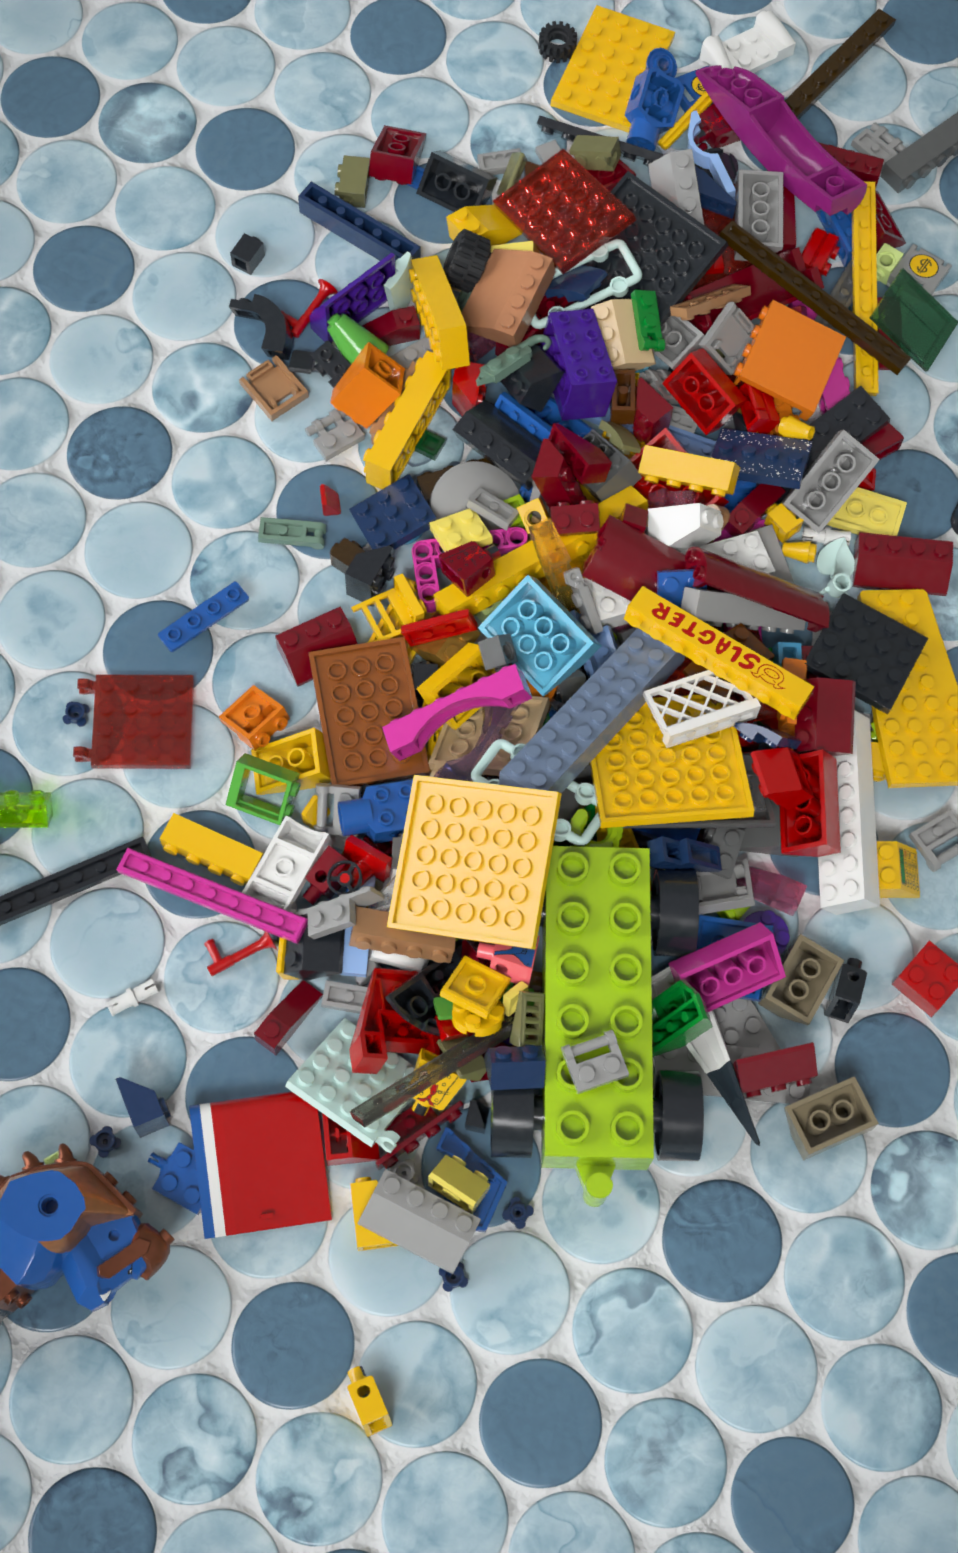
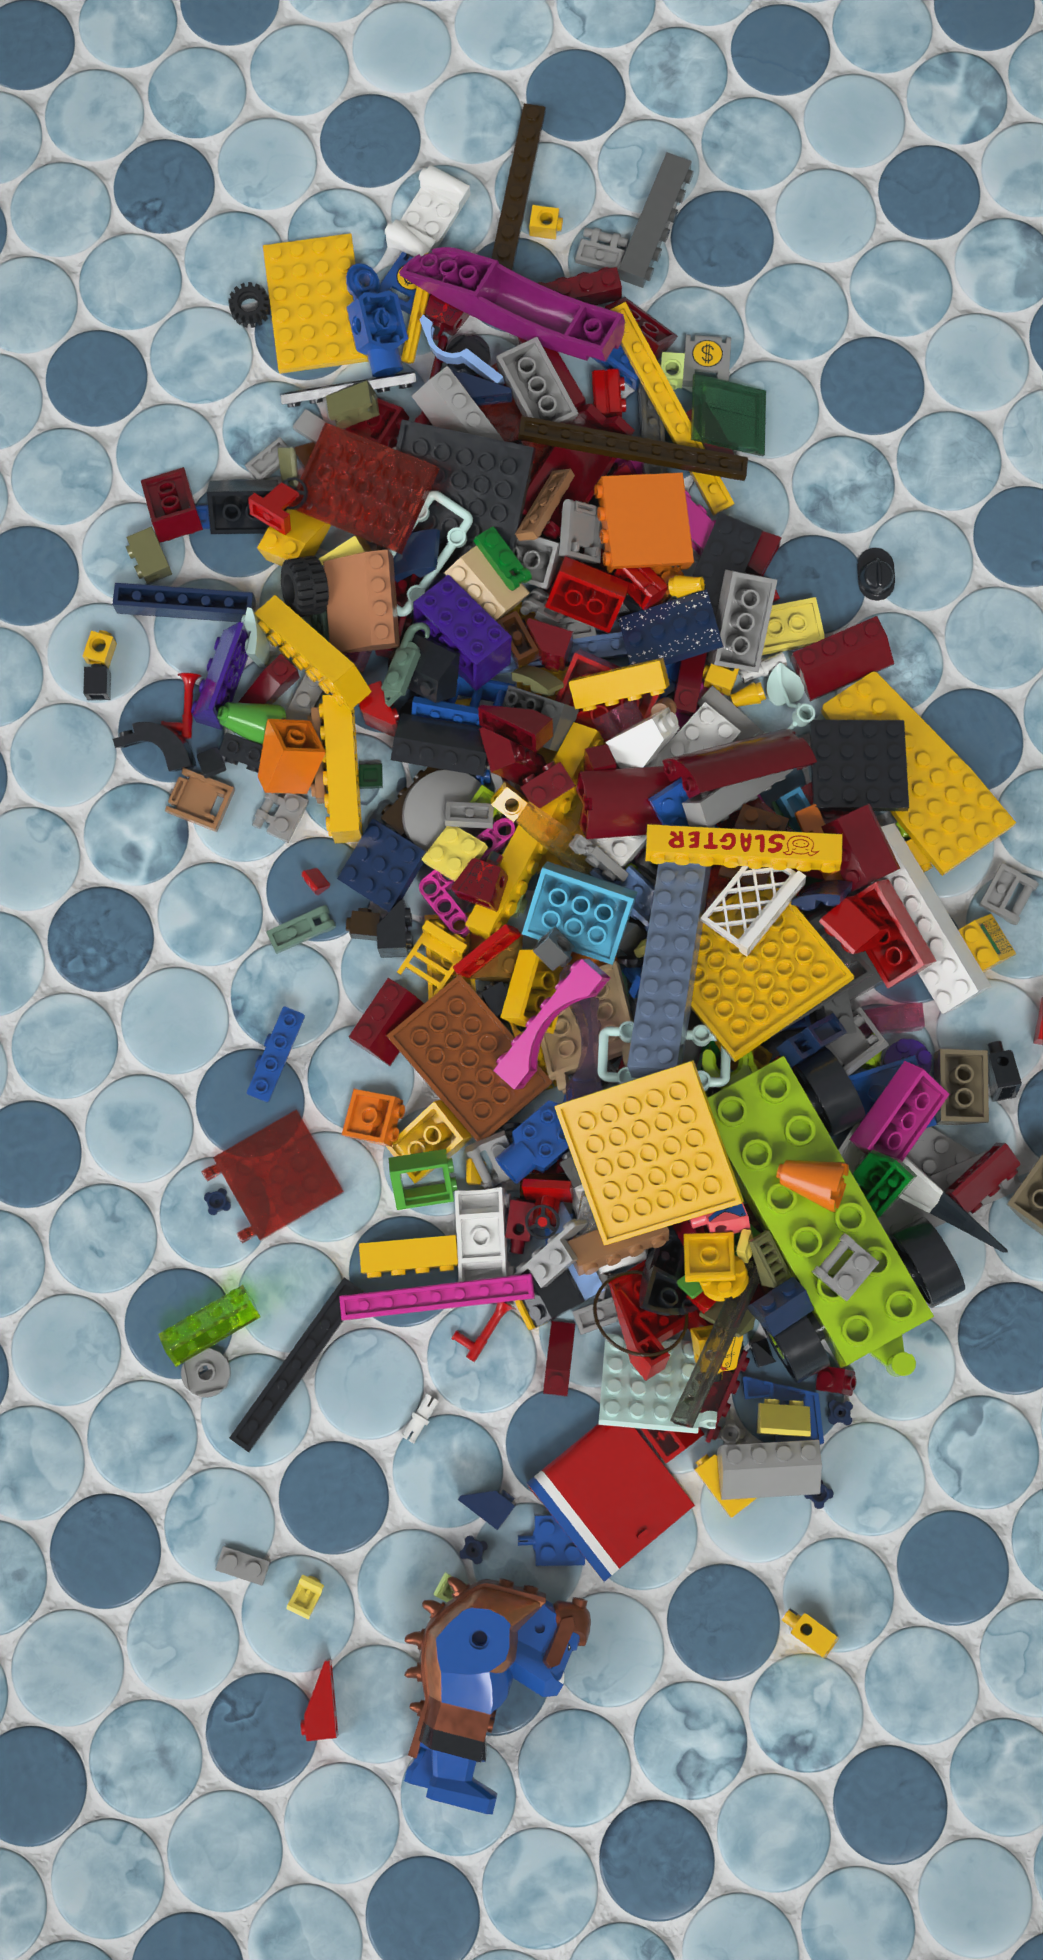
camera: 20 degrees left, 10 degrees up
(267, 228) = (102, 657): none -> yellow brick
(348, 1028) = (618, 1346): none -> dark brown piece
(475, 189) = (272, 506): none -> red piece
(531, 1181) = (836, 1381): none -> dark red bracket
(613, 966) = (815, 1180): none -> orange cone
(843, 101) = (541, 214): none -> yellow brick

